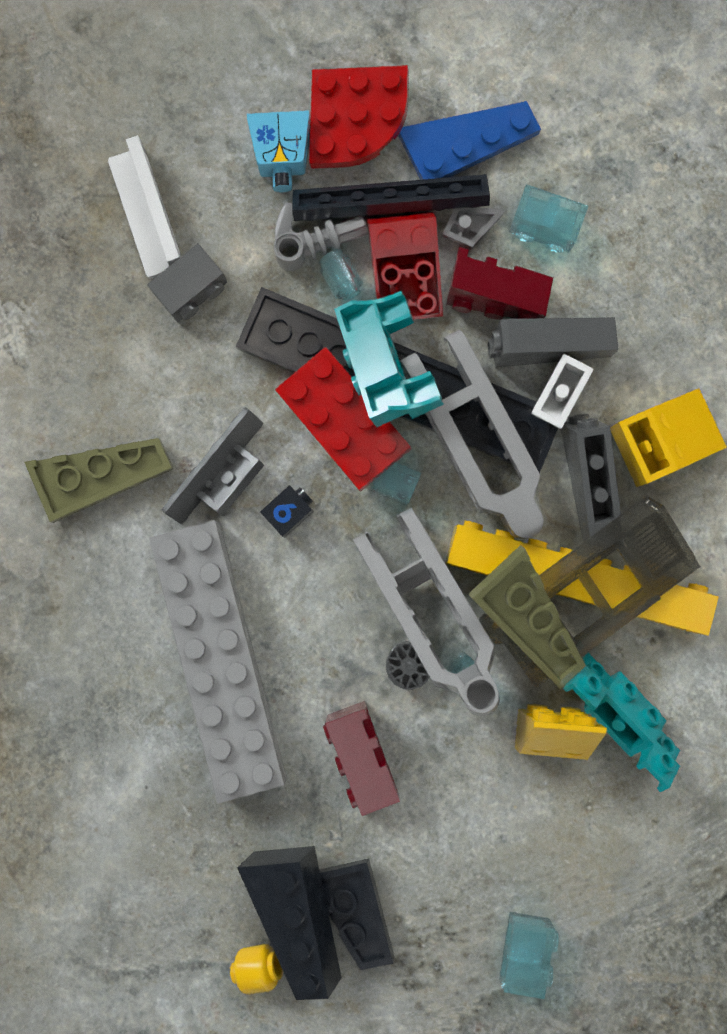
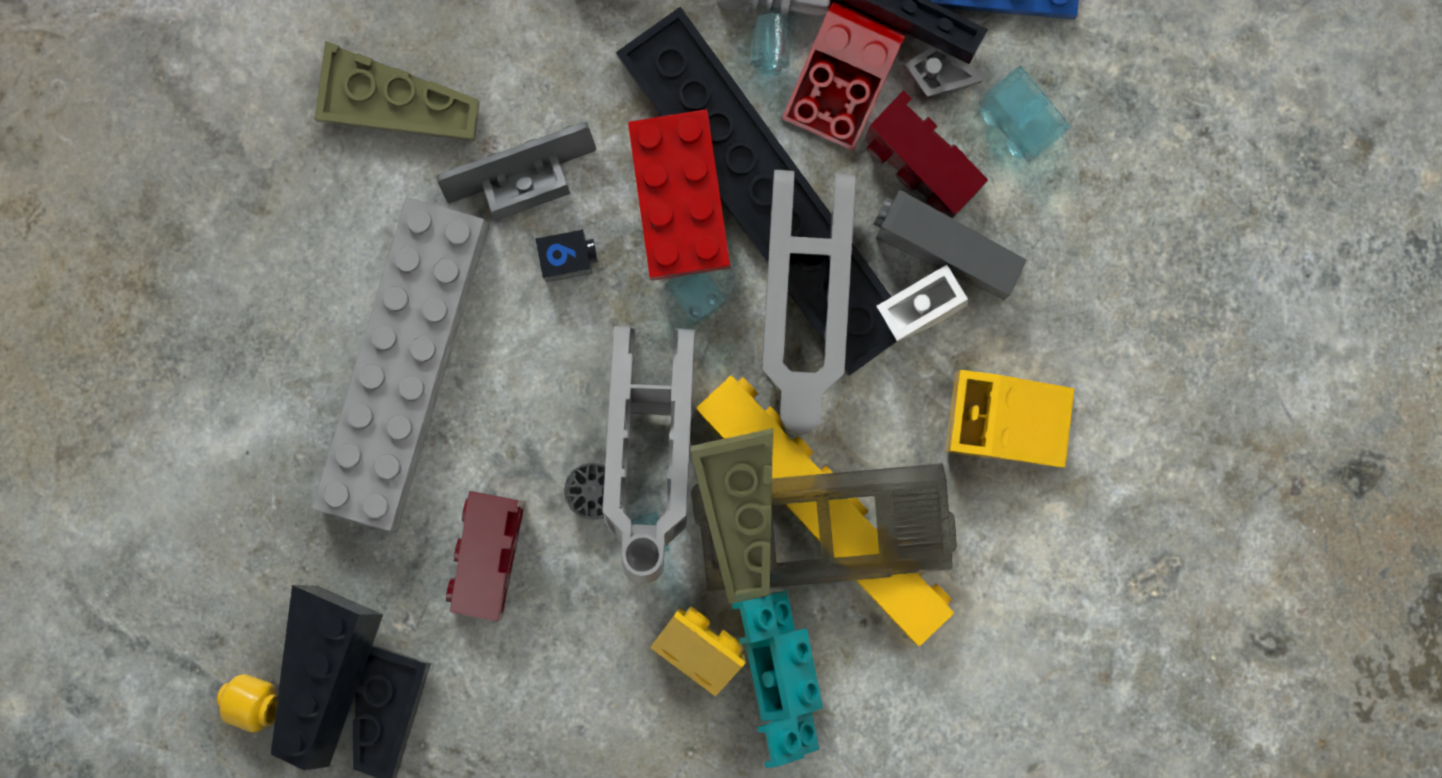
camera: 30 degrees right, 0 degrees up
(376, 364) = (748, 154): teal bracket -> none
(591, 472) = (904, 405): dark grey slope -> none

